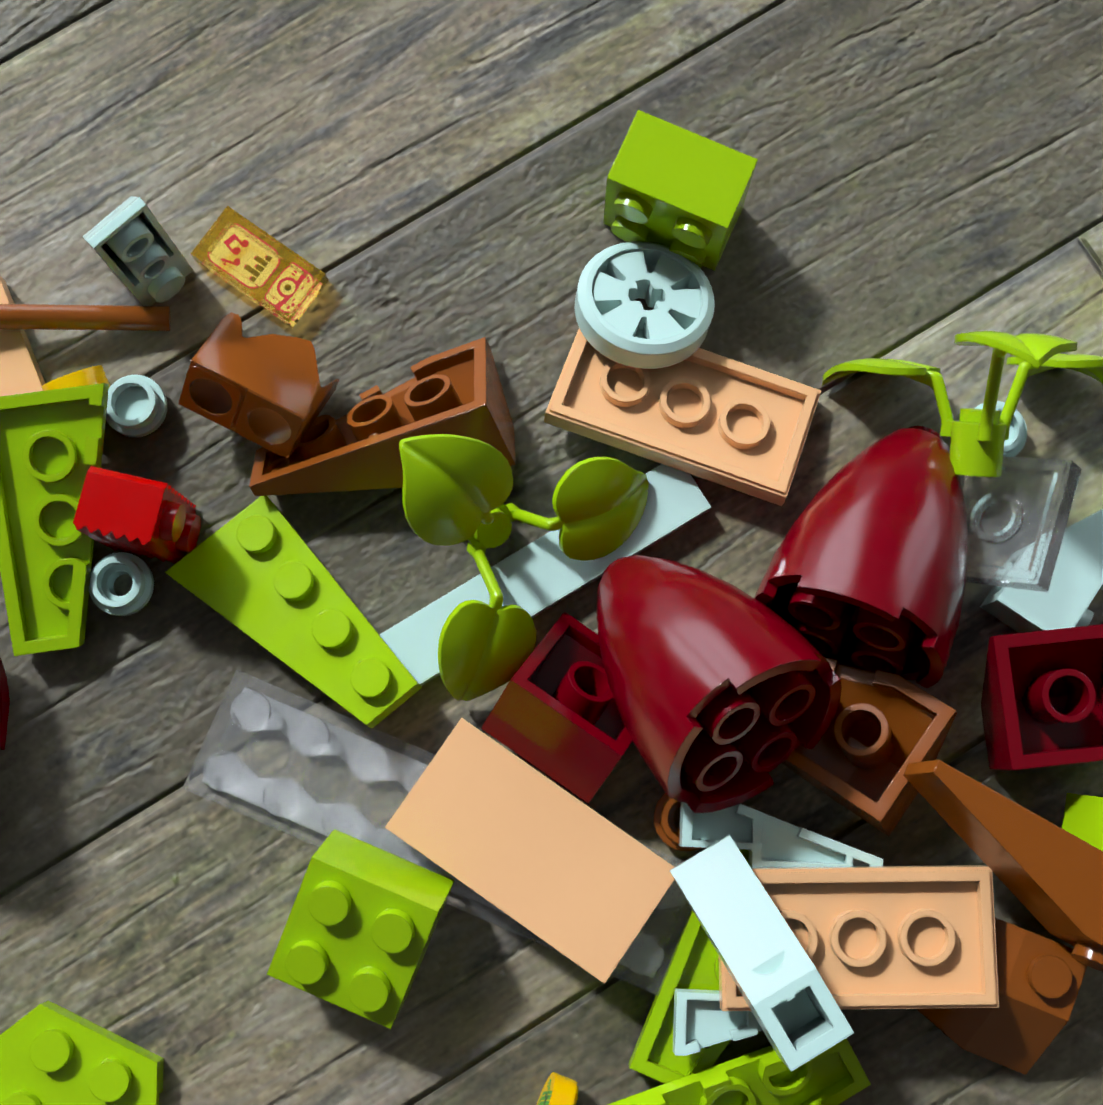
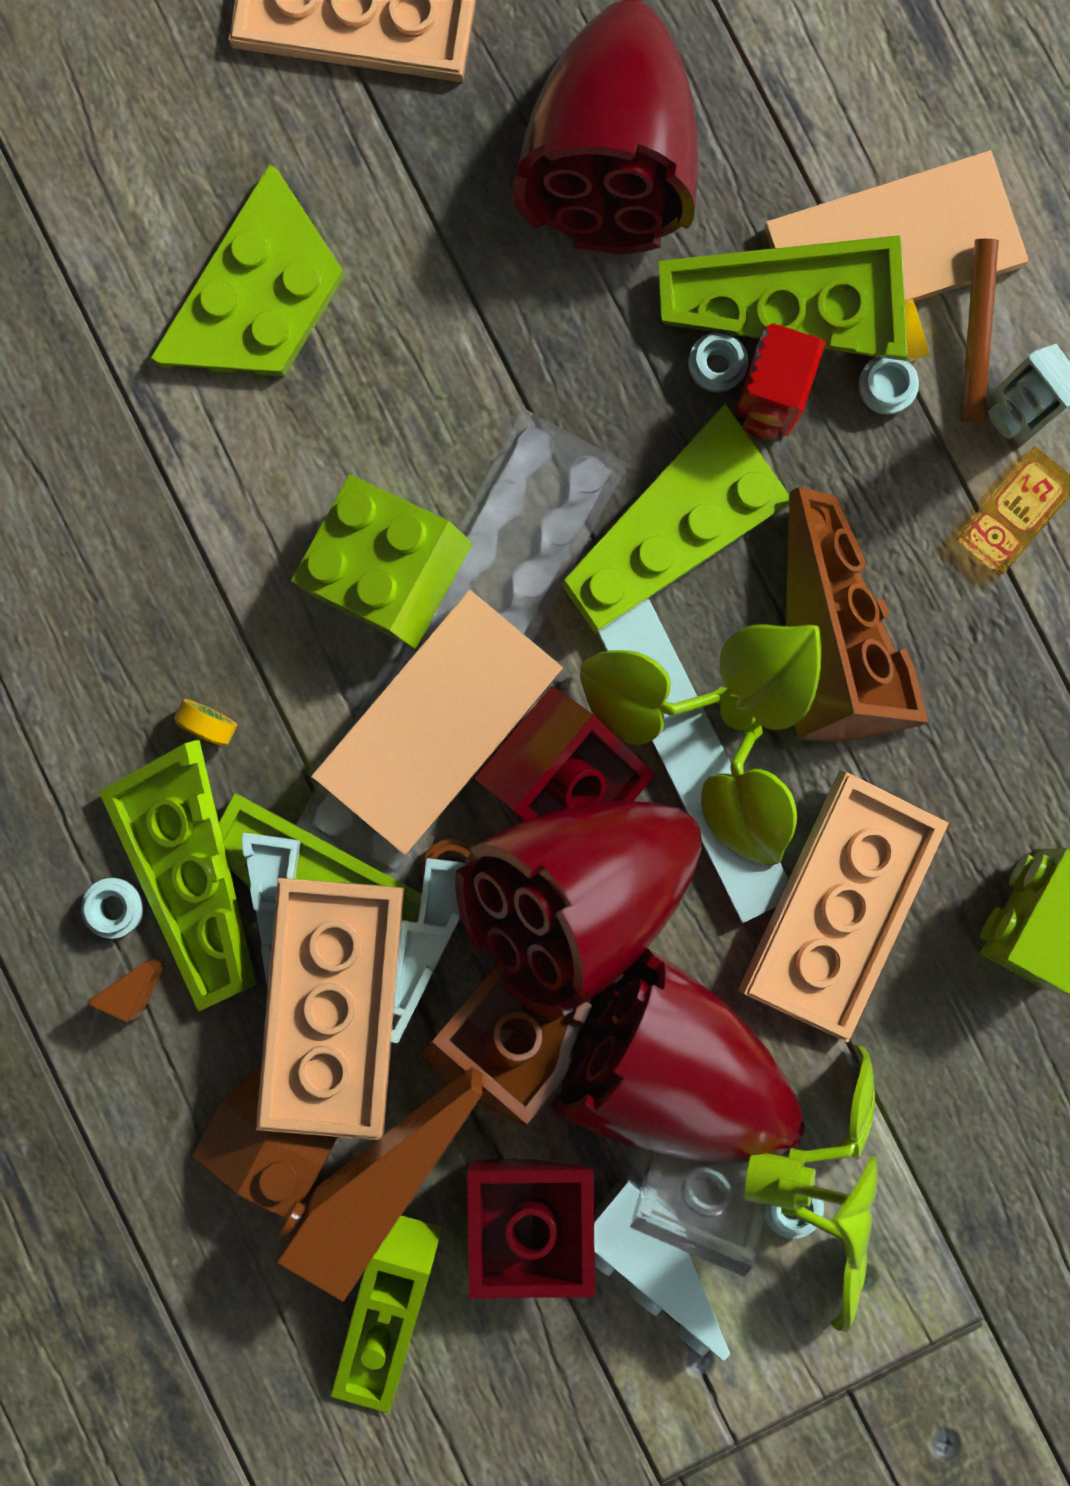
camera: 90 degrees right, 5 degrees up
(256, 385) = (895, 500): dark orange piece -> none
(619, 324) = (931, 848): light aqua wheel -> none
(761, 954) = (327, 913): light aqua slope -> none

